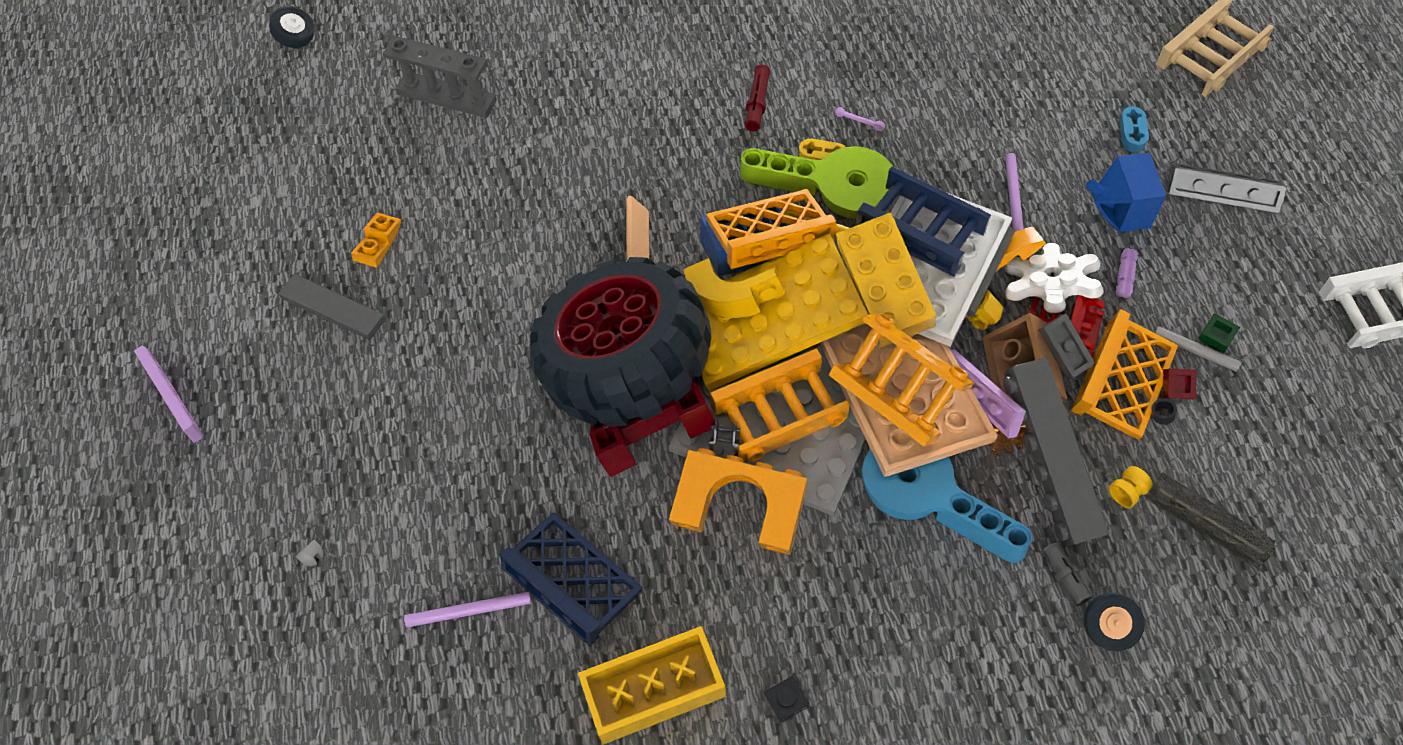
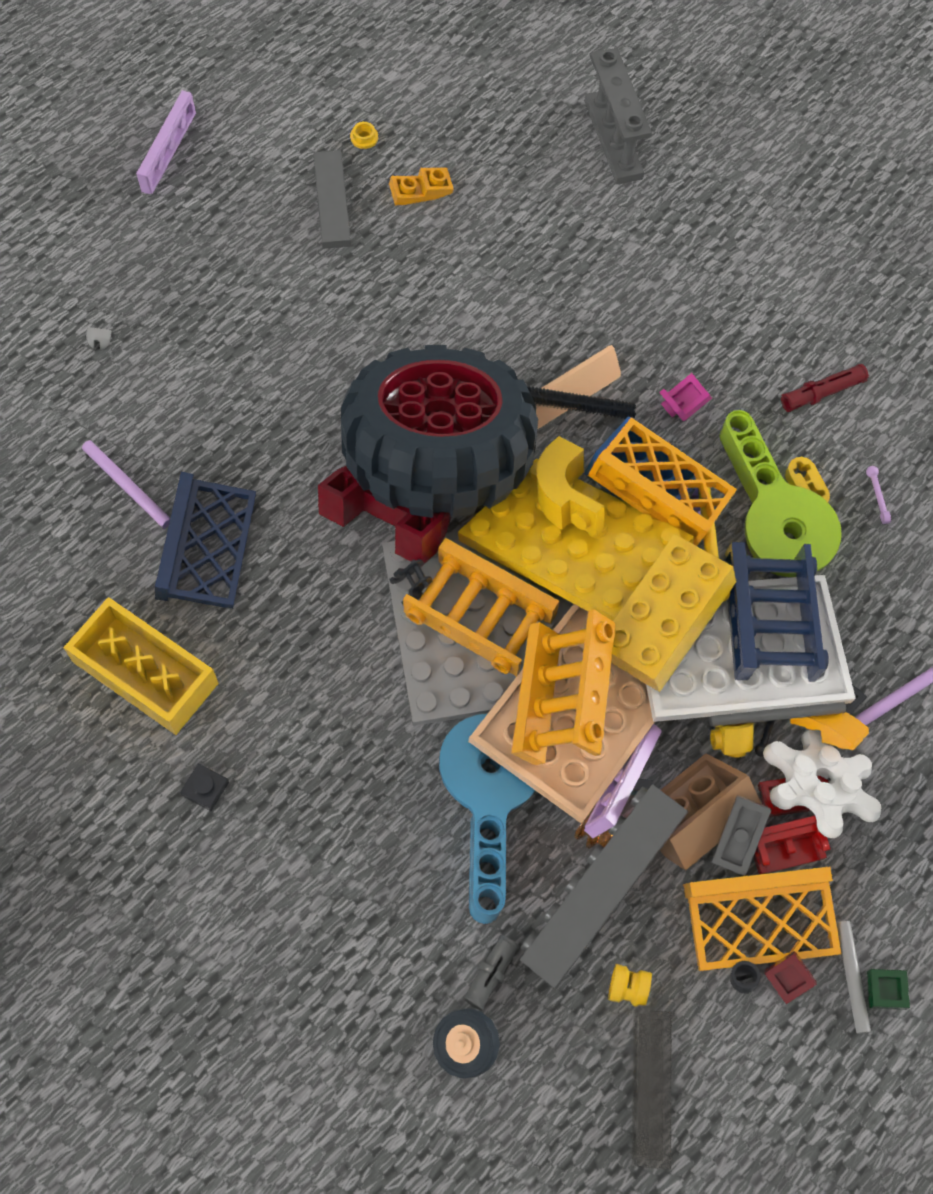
camera: 50 degrees right, 5 degrees up
(293, 245) = (364, 135): none -> yellow plate
(665, 237) = (582, 403): none -> black axle
(701, 180) = (685, 398): none -> dark pink bracket
(706, 474) = (392, 662): light orange arch -> none
(1126, 273) = (893, 855): lavender axle -> none

